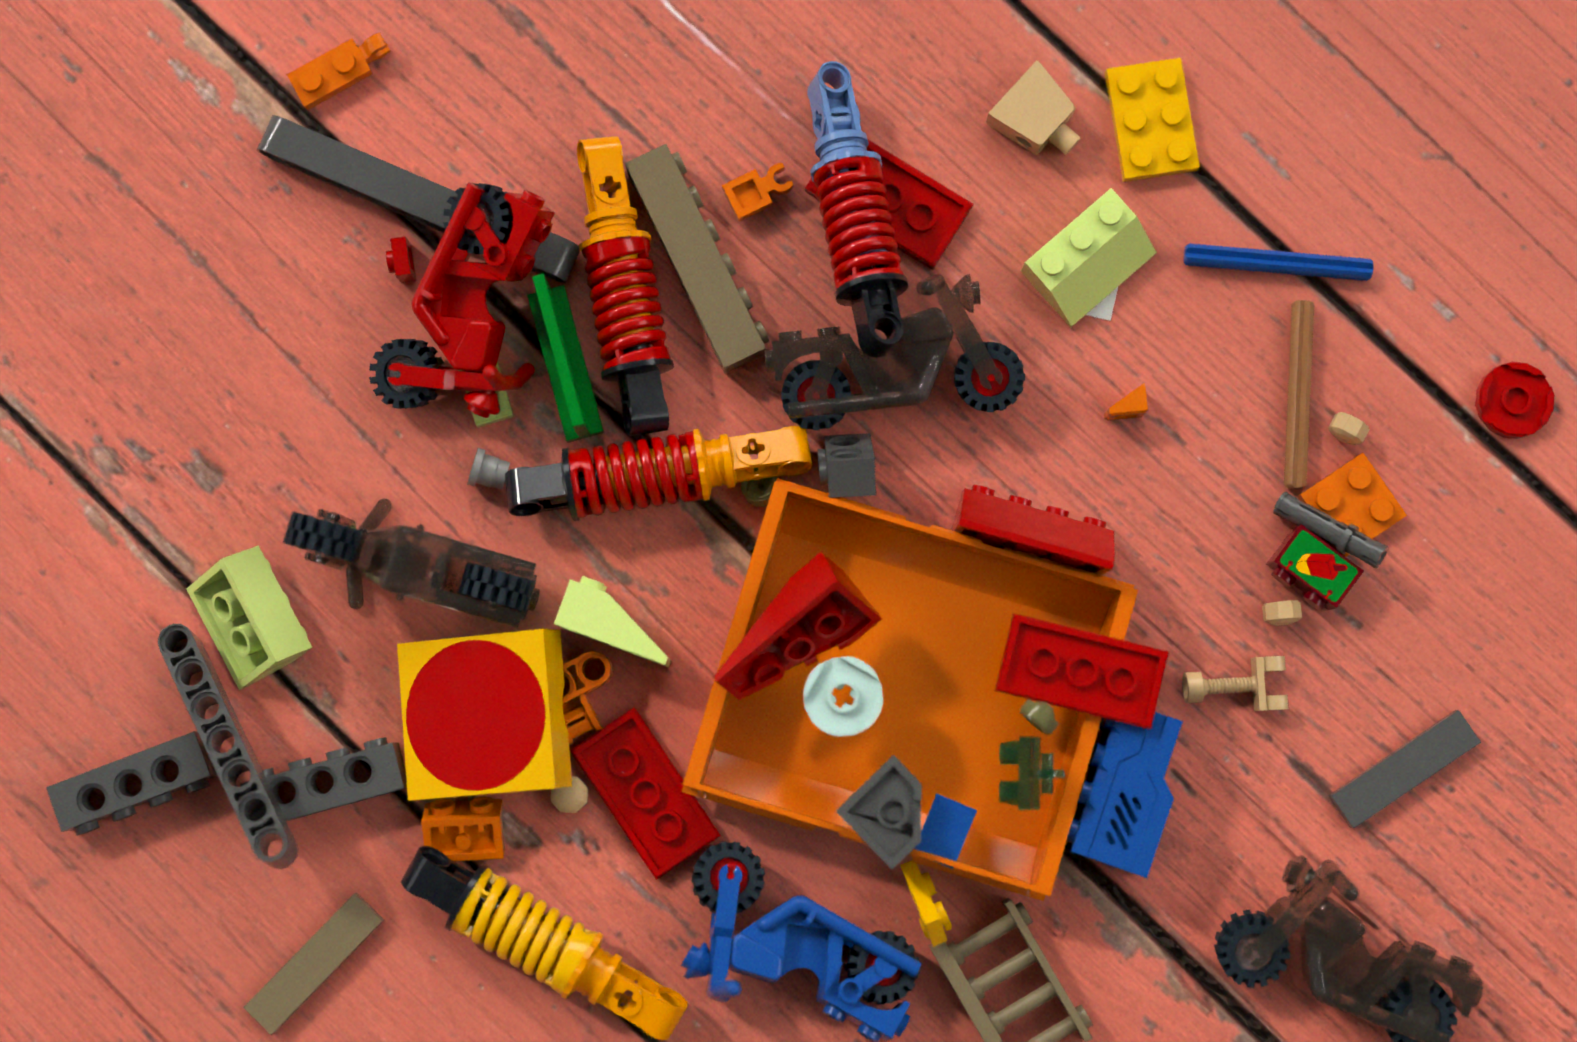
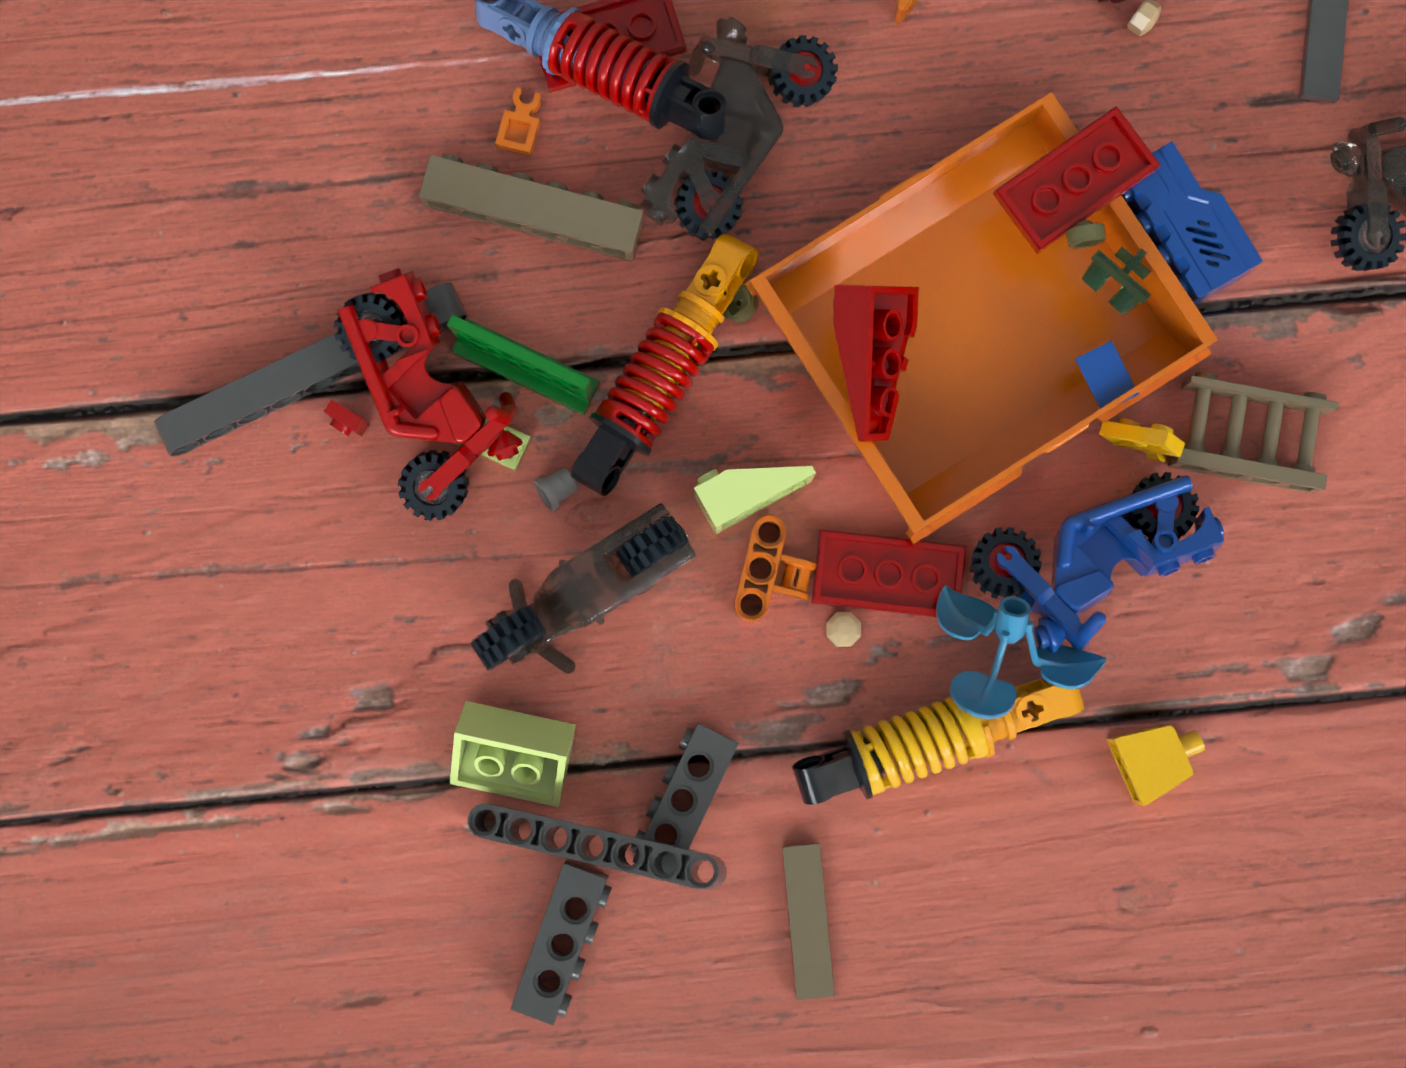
camera: 50 degrees left, 0 degrees up
(336, 70) = (161, 348): orange plate -> none
(465, 828) = (804, 725): orange bracket -> none
(484, 714) = (735, 639): red tile -> none
(595, 952) = (992, 698): none -> dark azure plant
(623, 289) = (509, 275): piece -> none
(821, 703) = (961, 343): light aqua plate -> none
(847, 465) = (780, 223): dark grey brick -> none
(887, 812) = (1061, 401): dark grey plate -> none
(1035, 531) = (943, 132): red slope -> none
(1196, 687) = (1146, 121): tan bar -> none

